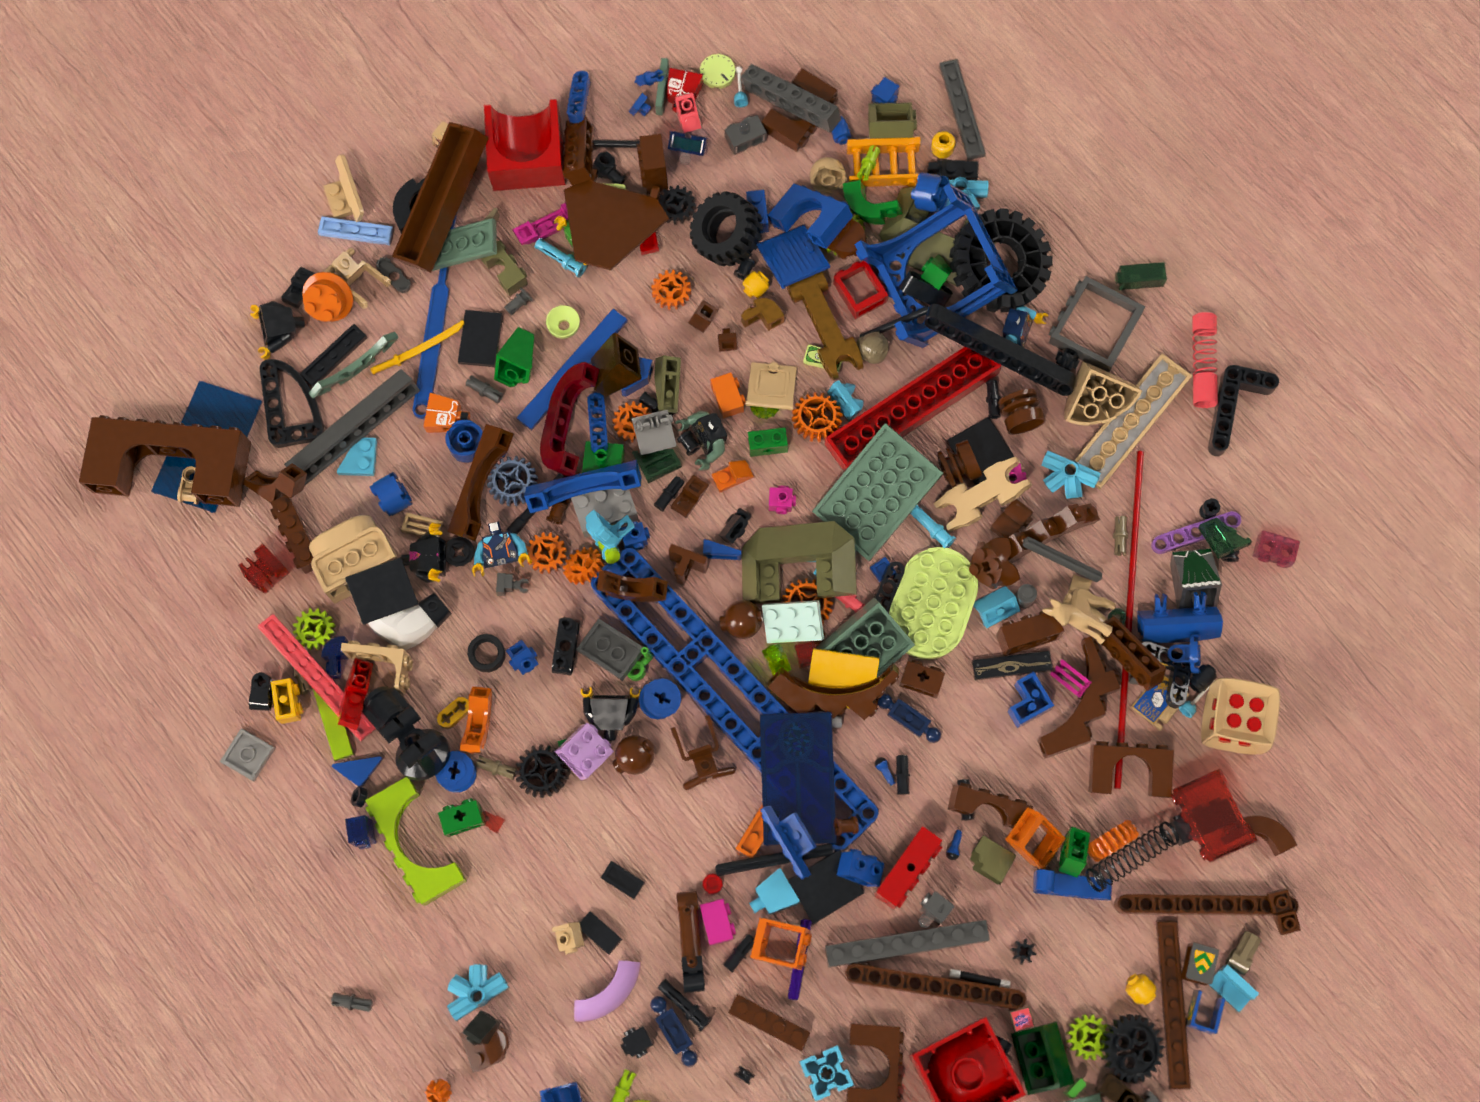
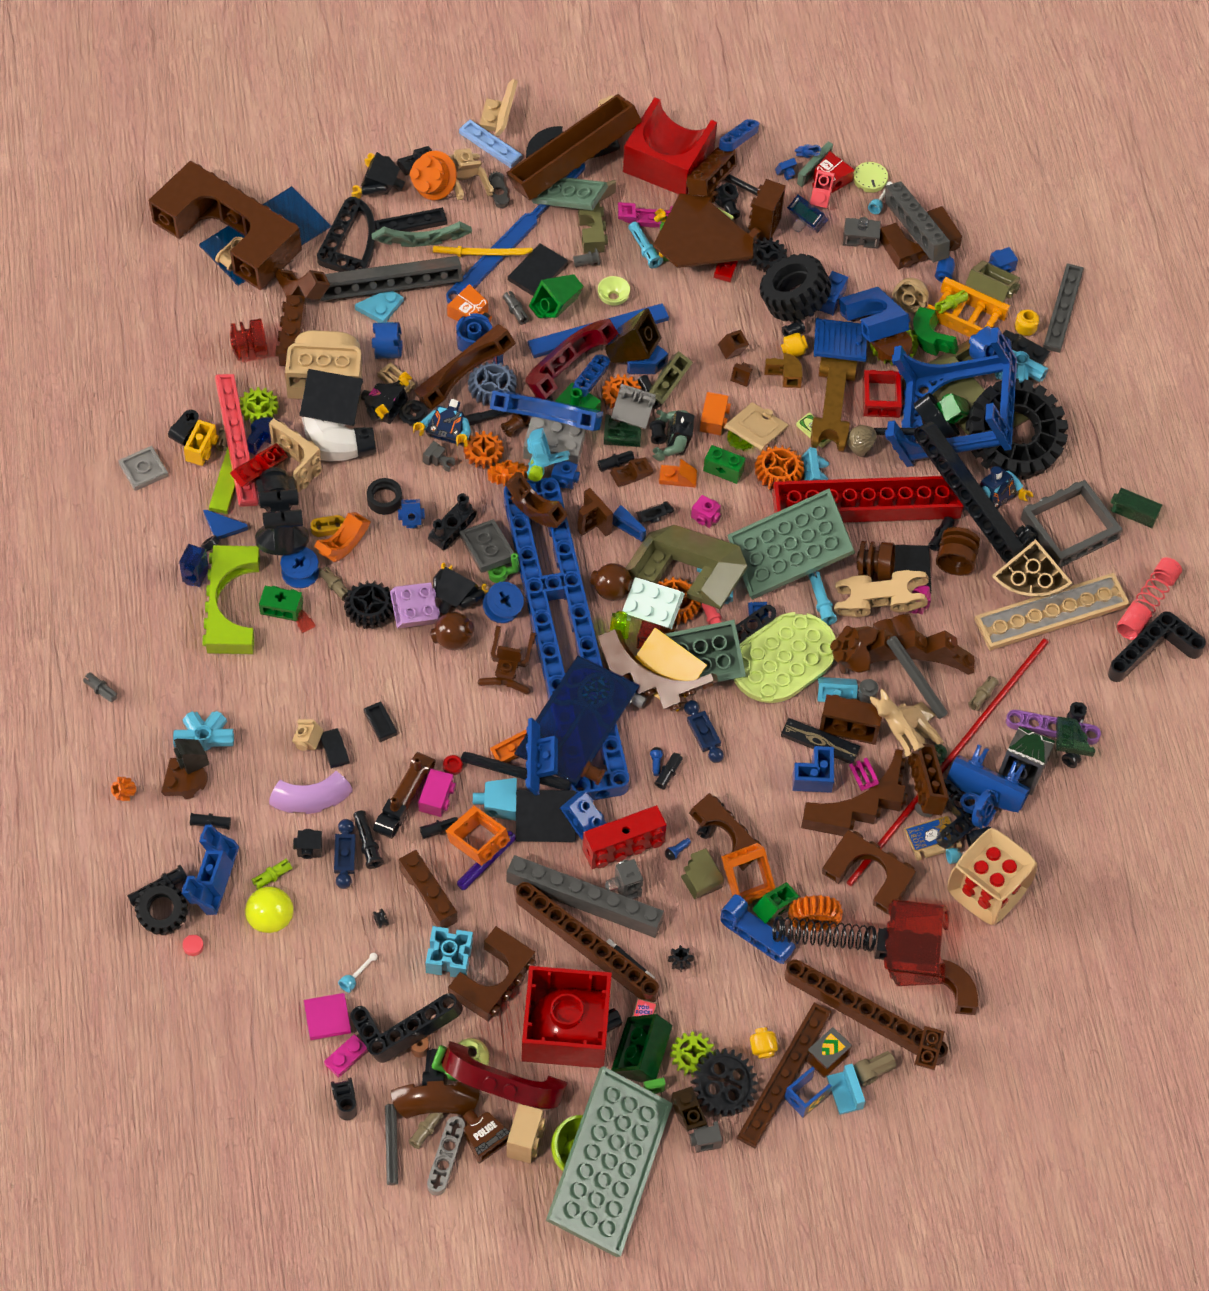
camera: 25 degrees right, 15 degrees down
(535, 1073) = (216, 821): none -> black pin
(677, 295) = (720, 313): orange gear -> none
(931, 684) = (735, 707): reddish brown brick -> none
(1061, 477) = (966, 627): medium azure piece -> none
(1276, 544) = (1119, 772): clear pink brick -> none

